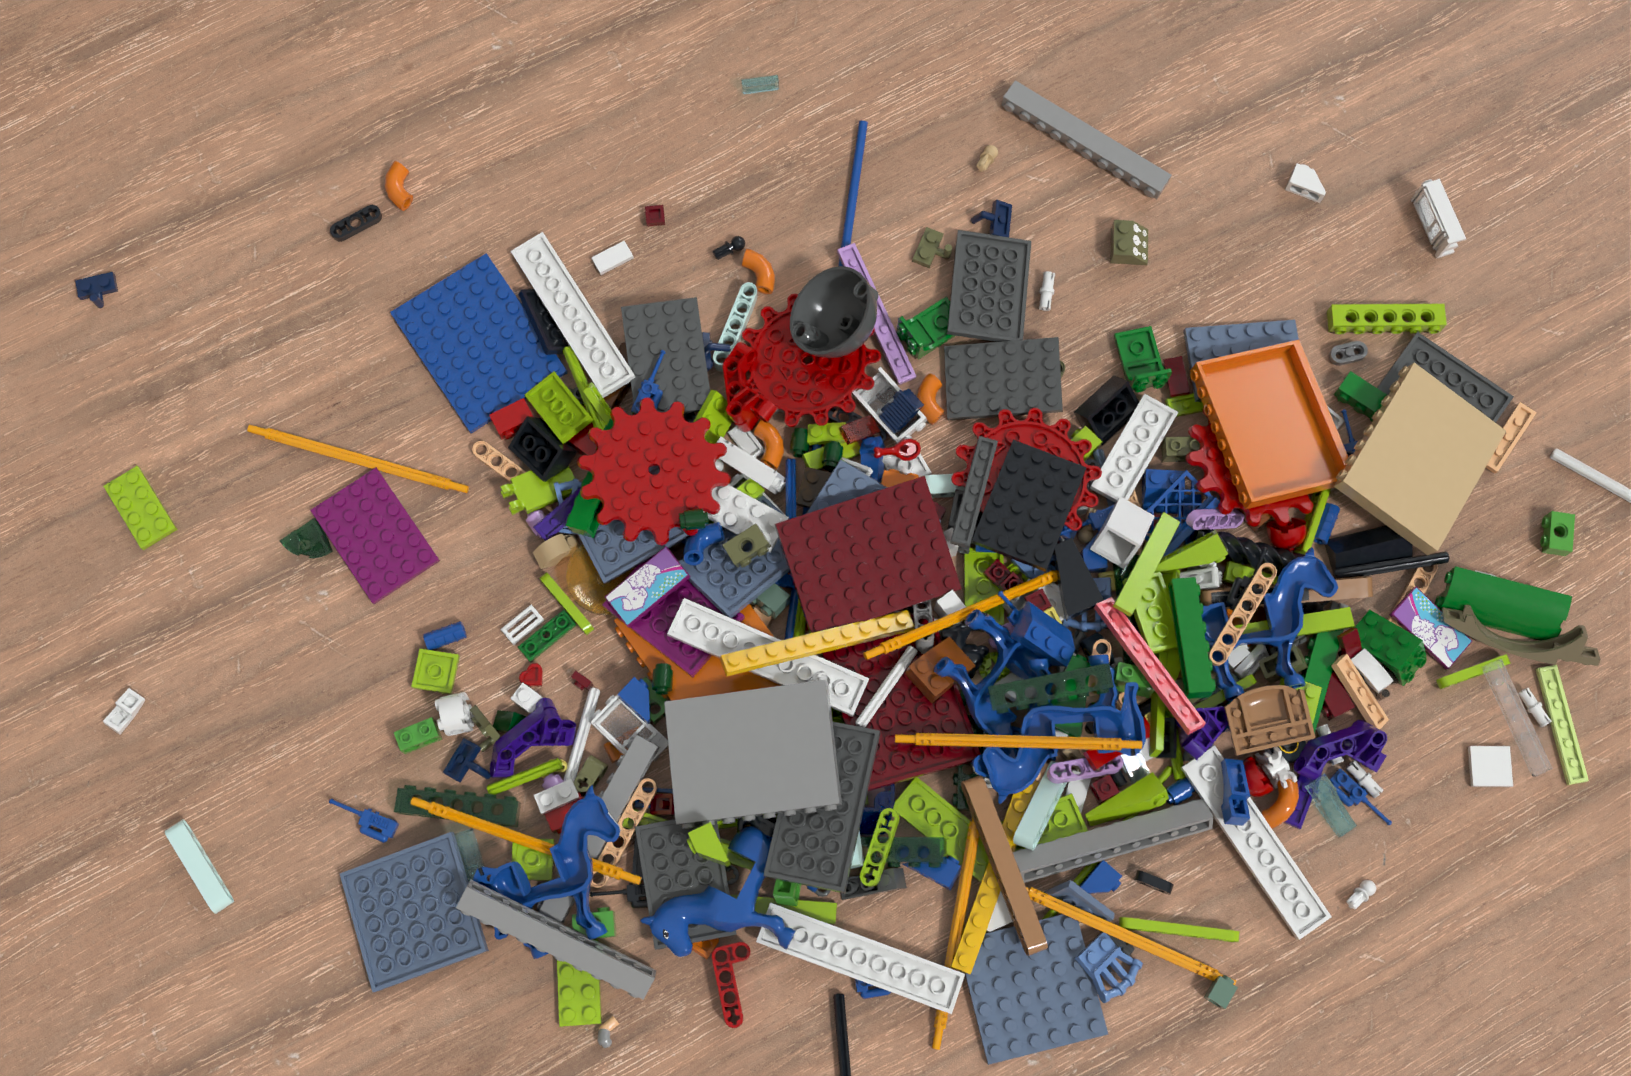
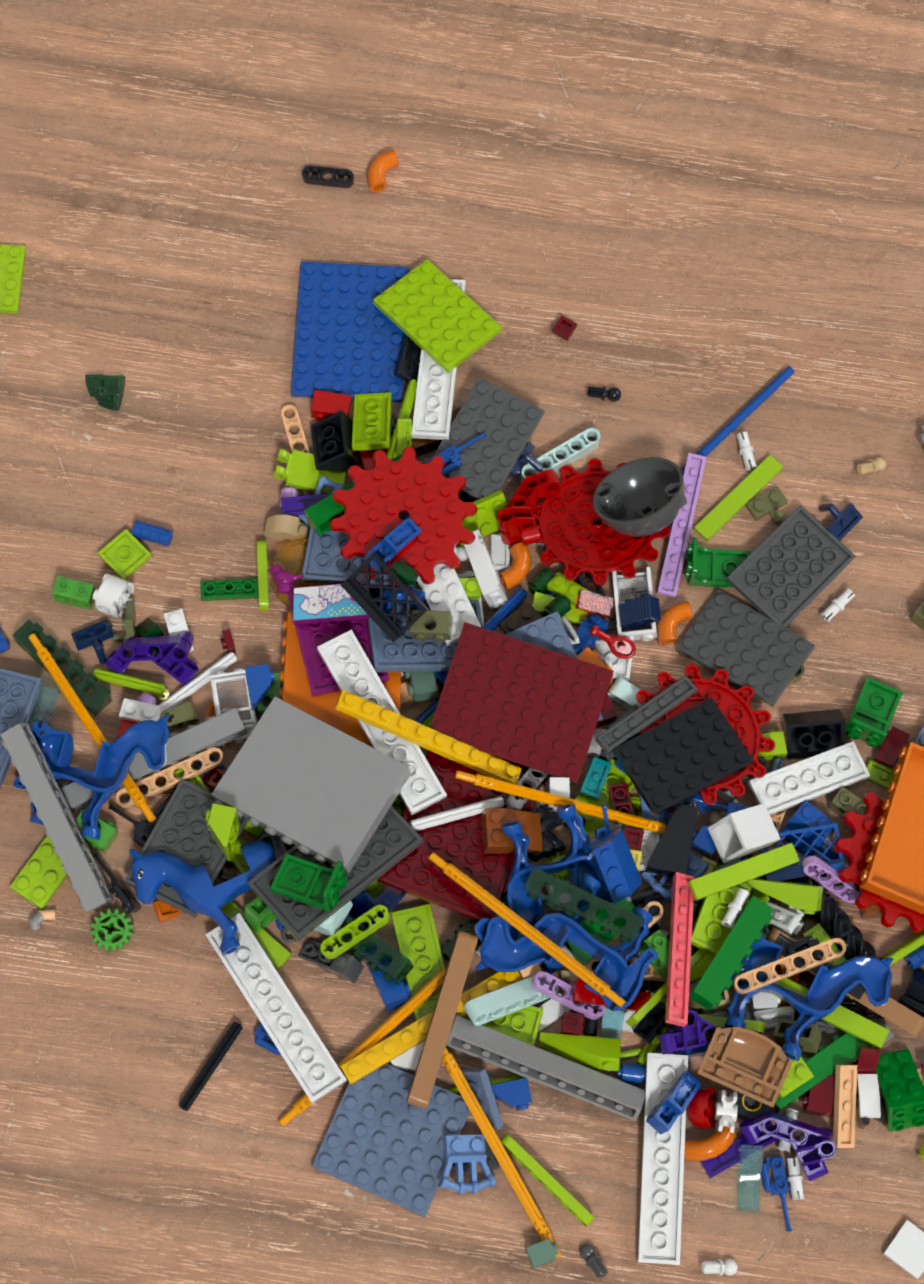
camera: 35 degrees right, 5 degrees down
(96, 287) = (97, 93): dark blue plate -> none
(358, 459) = (192, 356): light orange axle -> none
(375, 535) = (159, 421): magenta plate -> none
(527, 630) = (222, 574): white tile -> none
(532, 676) = (195, 611): red tile -> none
(536, 864) = (85, 749): lime plate -> none
(543, 278) = (437, 315): none -> lime plate
(589, 595) = (283, 579): none -> magenta animal
(612, 257) = (508, 339): white tile -> none
(654, 958) = (119, 890): none -> black piece
(662, 679) = (288, 680): dark green brick -> none
(666, 501) = (394, 542): none -> blue slope
(671, 988) = (103, 928): none -> bright green gear
(693, 567) = (376, 610): none -> black fence
(731, 986) = (162, 954): red beam -> none
(760, 84) = (729, 283): clear light blue tile -> none
(763, 270) = (617, 427): orange cylinder -> none
(817, 837) = (310, 882): none -> green bracket
(879, 215) = (746, 451): none -> white pin
(902, 259) = (738, 498): none -> lime tile
(969, 573) = (595, 778): none -> teal plate
(1153, 882) = (555, 1128): black beam -> none
(1164, 599) = (735, 908): none -> white pin
(1254, 962) = (594, 1261): none -> dark grey axle
(1287, 536) = (884, 938): red cylinder -> none

